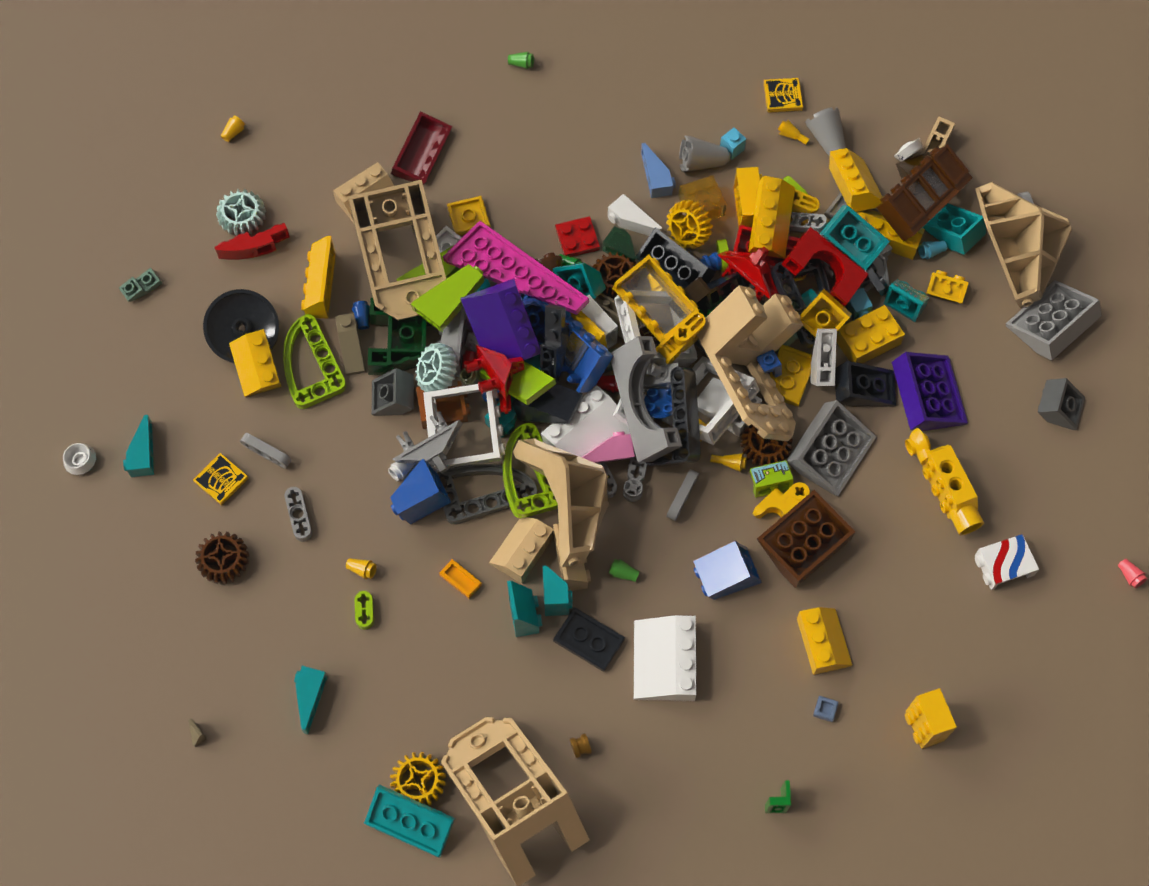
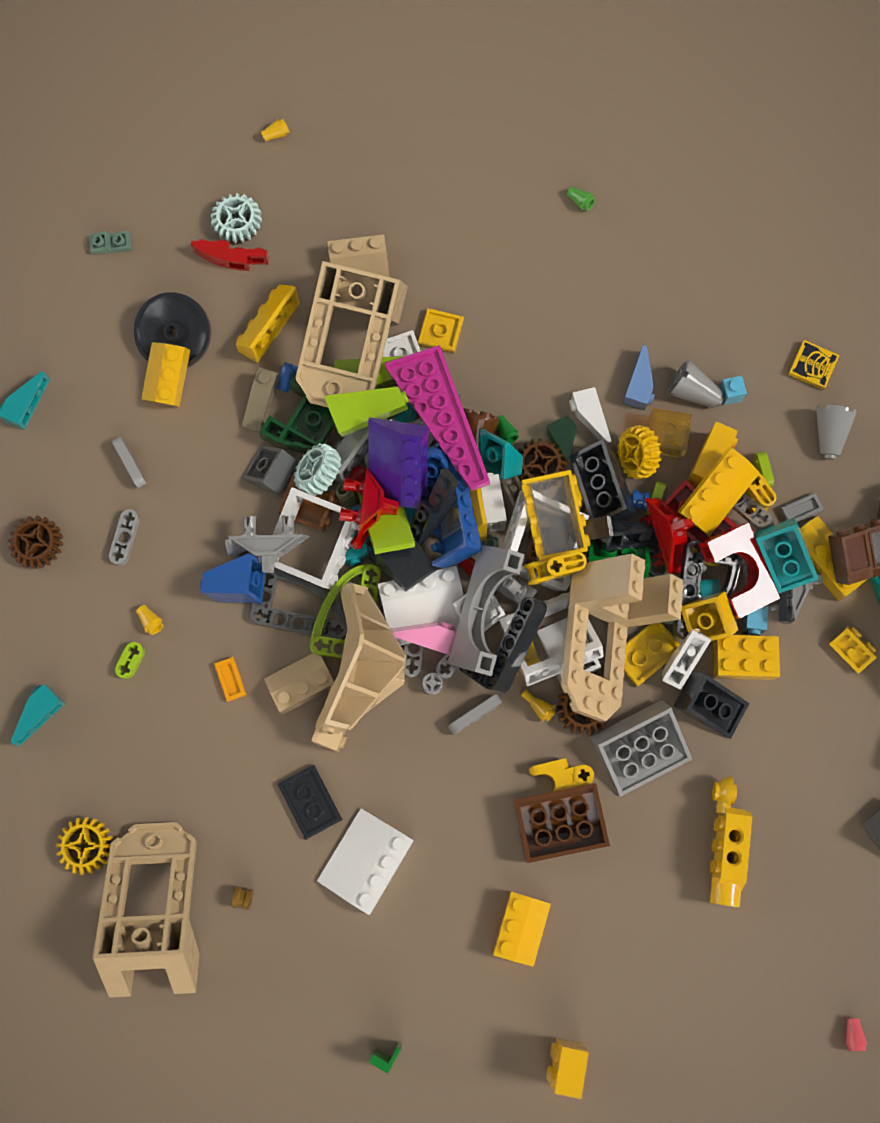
camera: 30 degrees right, 10 degrees up
(220, 479) = (76, 466): tile -> none
(328, 383) = (219, 427): lime beam -> none
(409, 820) = (55, 879): teal tile -> none
(421, 148) = (435, 240): dark red slope -> none
(523, 609) = (263, 743): teal slope -> none
(556, 594) = (299, 744): teal slope -> none
(577, 237) = (529, 405): red plate -> none
(622, 570) = (377, 756): bright green cone -> none
(658, 403) = (500, 615): blue dish -> none
(726, 571) = (470, 811): slope -> none
(770, 363) = (630, 633): blue bracket -> none
(770, 477) = (566, 744): lime panel -> none
(789, 130) = (797, 406): yellow cone -> none
(825, 709) = (483, 993): sand blue tile -> none
(854, 180) = (828, 493): yellow slope -> none
(906, 299) = (805, 640): teal slope -> none
(928, 391) = (770, 744): dark purple slope -> none
(931, 248) = (861, 601): medium azure cone -> none
(1006, 561) = (738, 954): panel -> none

